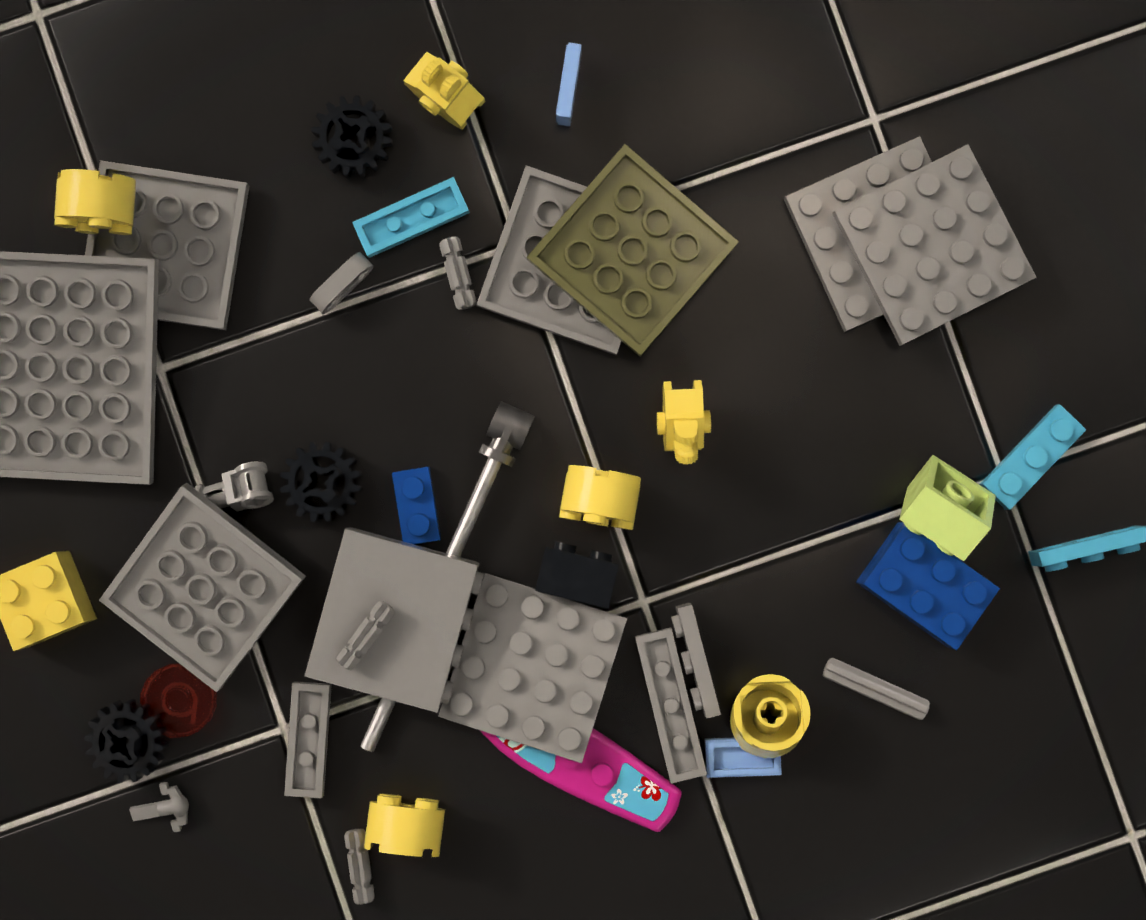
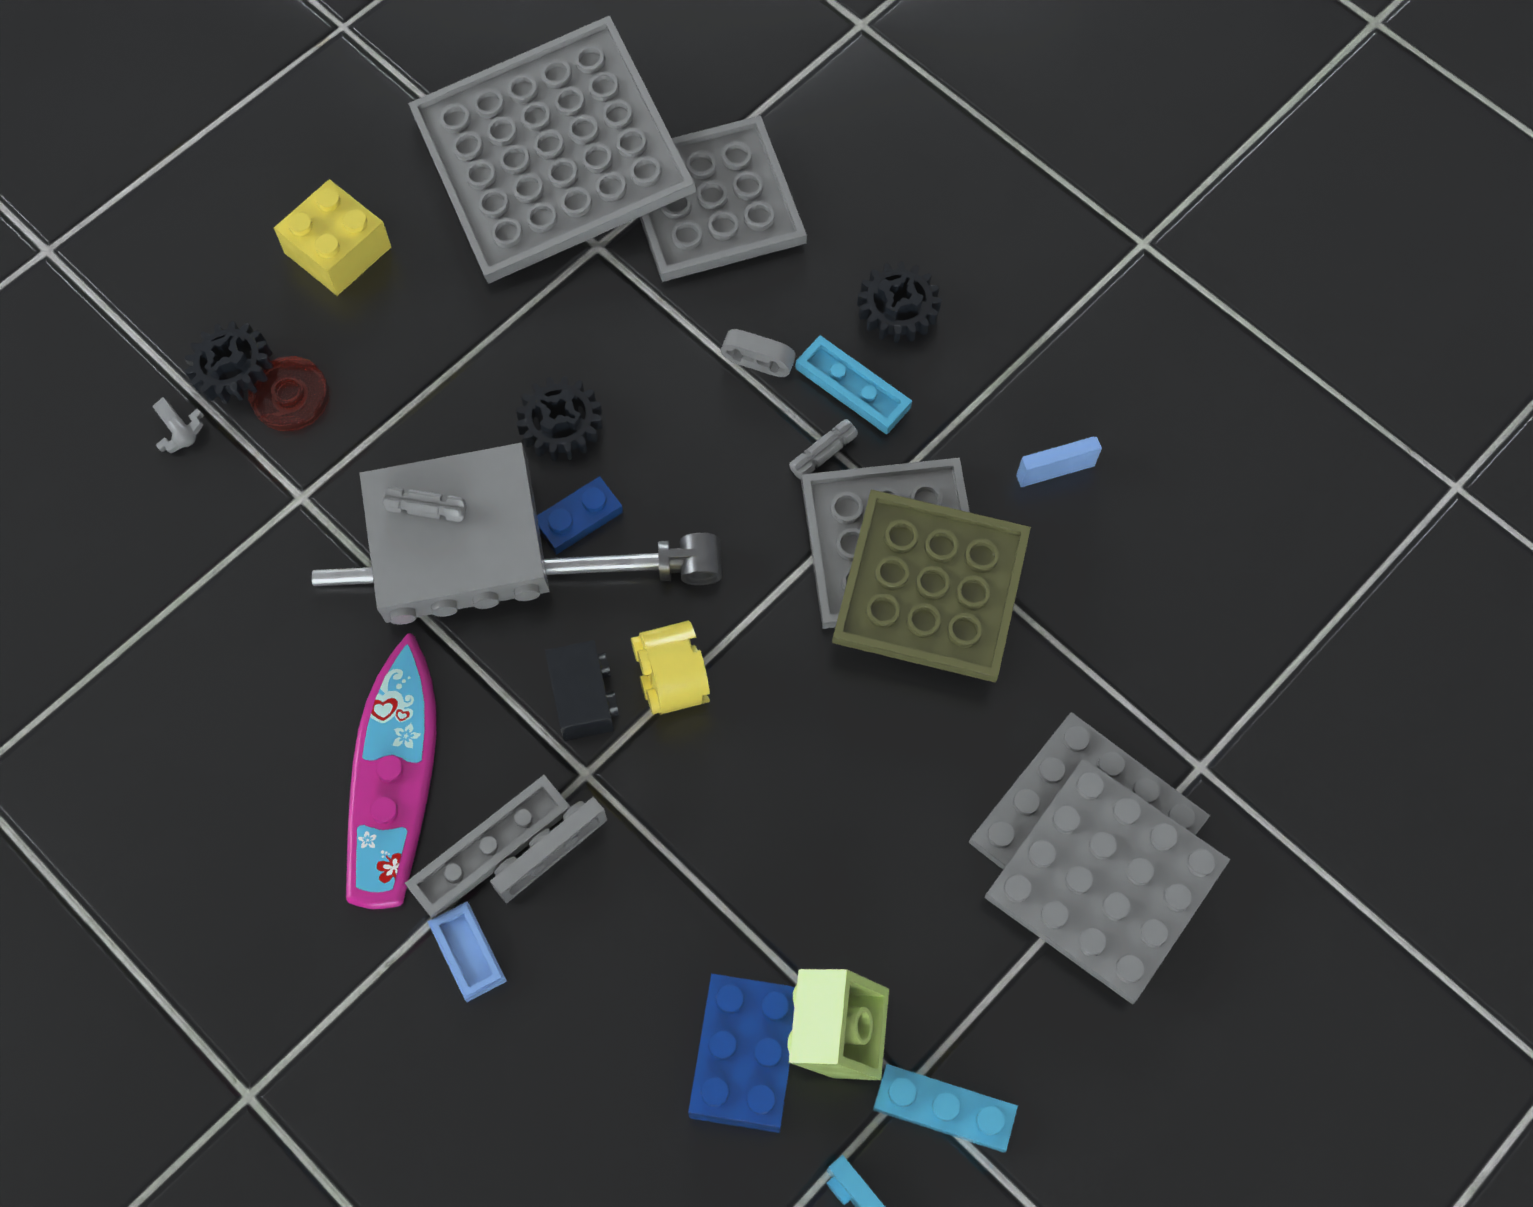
camera: 60 degrees right, 20 degrees down
(94, 202) = (719, 114): light yellow brick -> none
(202, 587) = (406, 359): light grey plate -> none
(240, 488) = (517, 352): light grey connector -> none
(308, 739) = (298, 519): light grey plate -> none
(359, 866) = (188, 623): light grey axle -> none
(404, 827) = (248, 637): light yellow brick -> none
(444, 89) = (988, 352): light yellow hinge -> none
(533, 668) = (465, 693): light grey plate -> none
(683, 421) = (790, 711): light yellow hinge -> none
(784, 701) = (529, 923): light yellow brick -> none
(876, 688) = (606, 1059): light grey axle -> none

